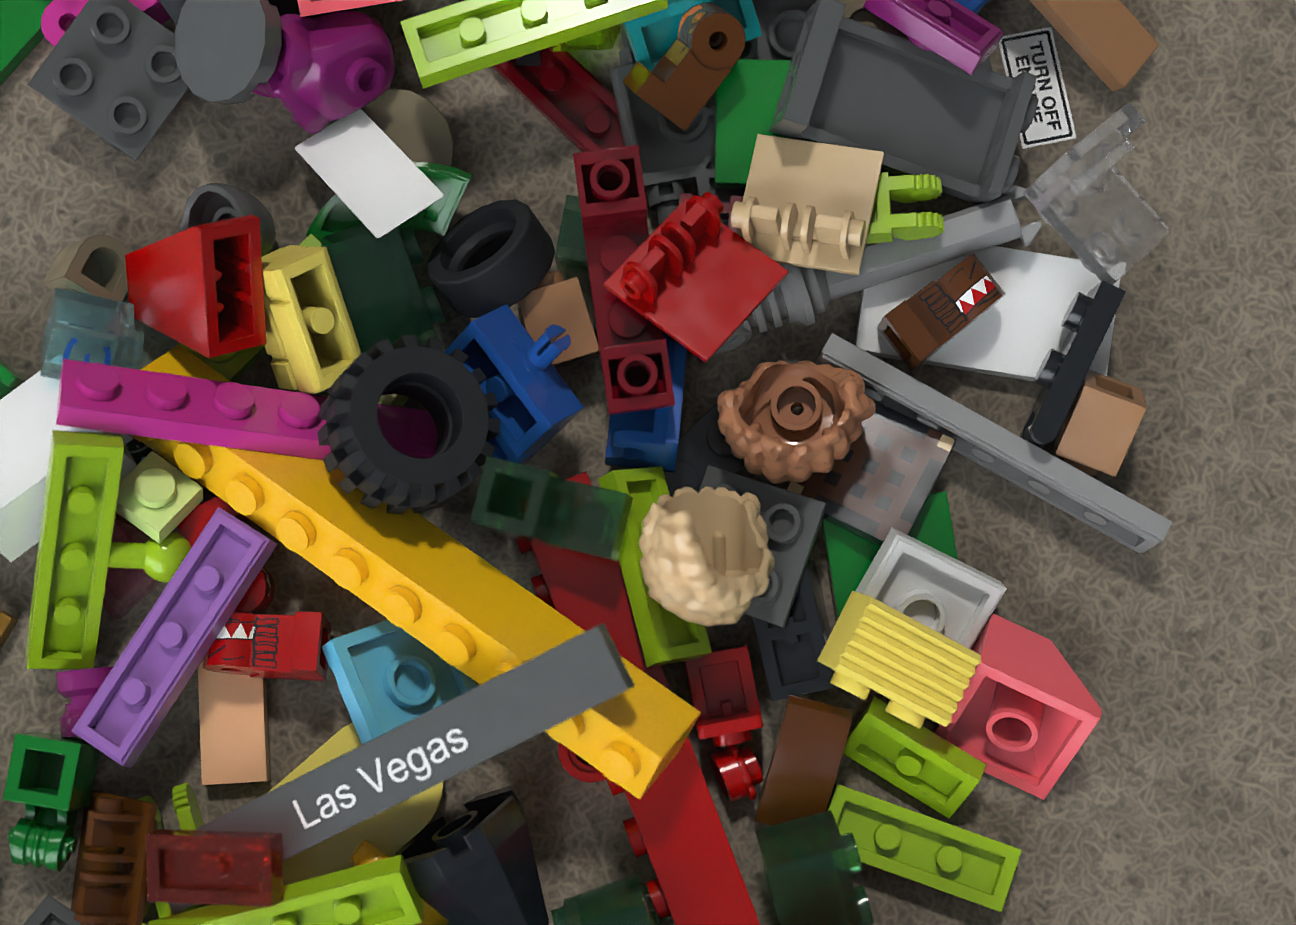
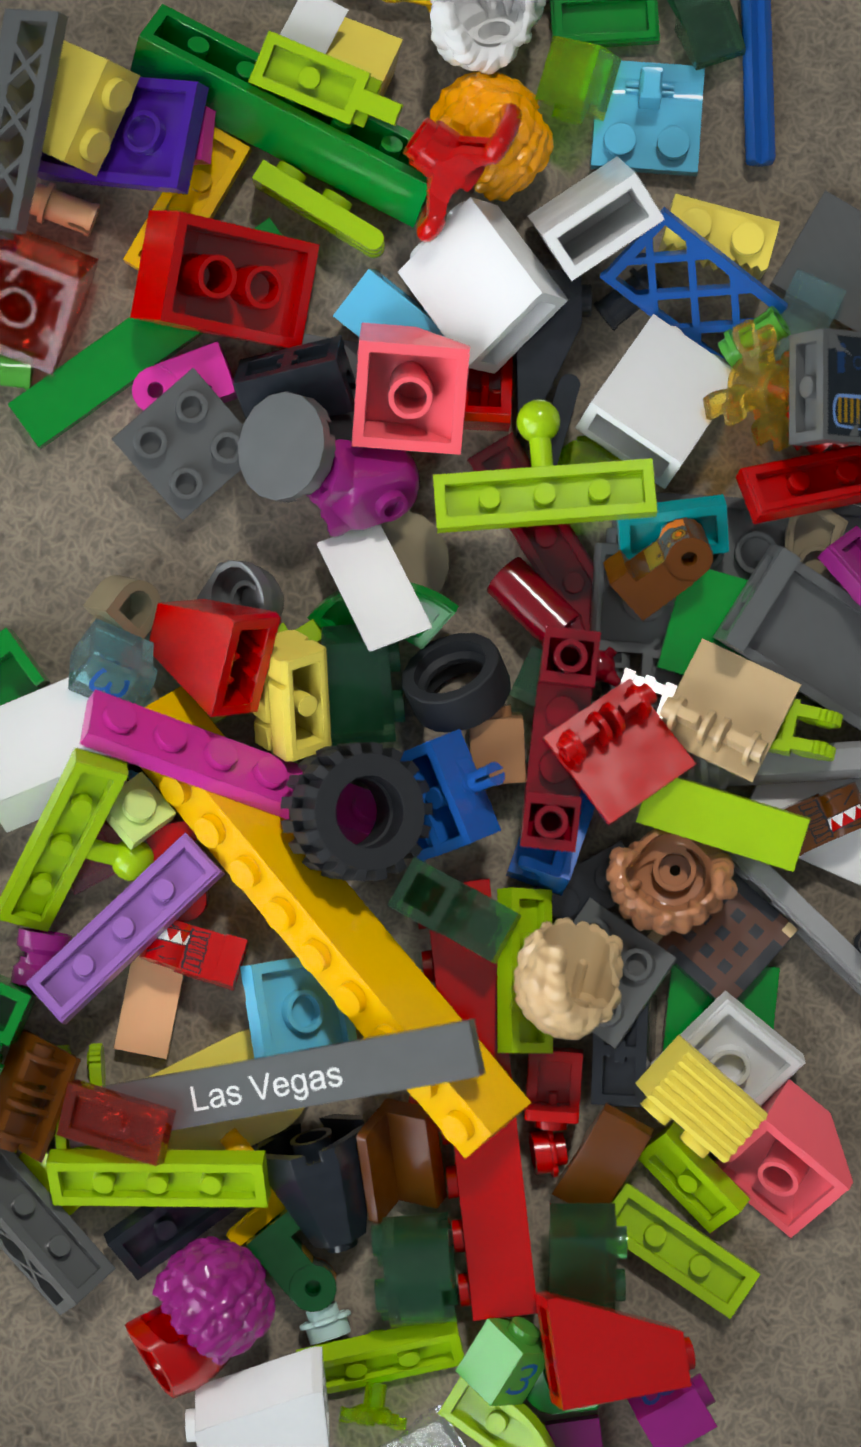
camera: 20 degrees right, 5 degrees up
(548, 150) = (538, 605): none -> dark red wheel
(565, 824) = (400, 1159): none -> reddish brown panel
(840, 330) = (727, 822): none -> lime tile

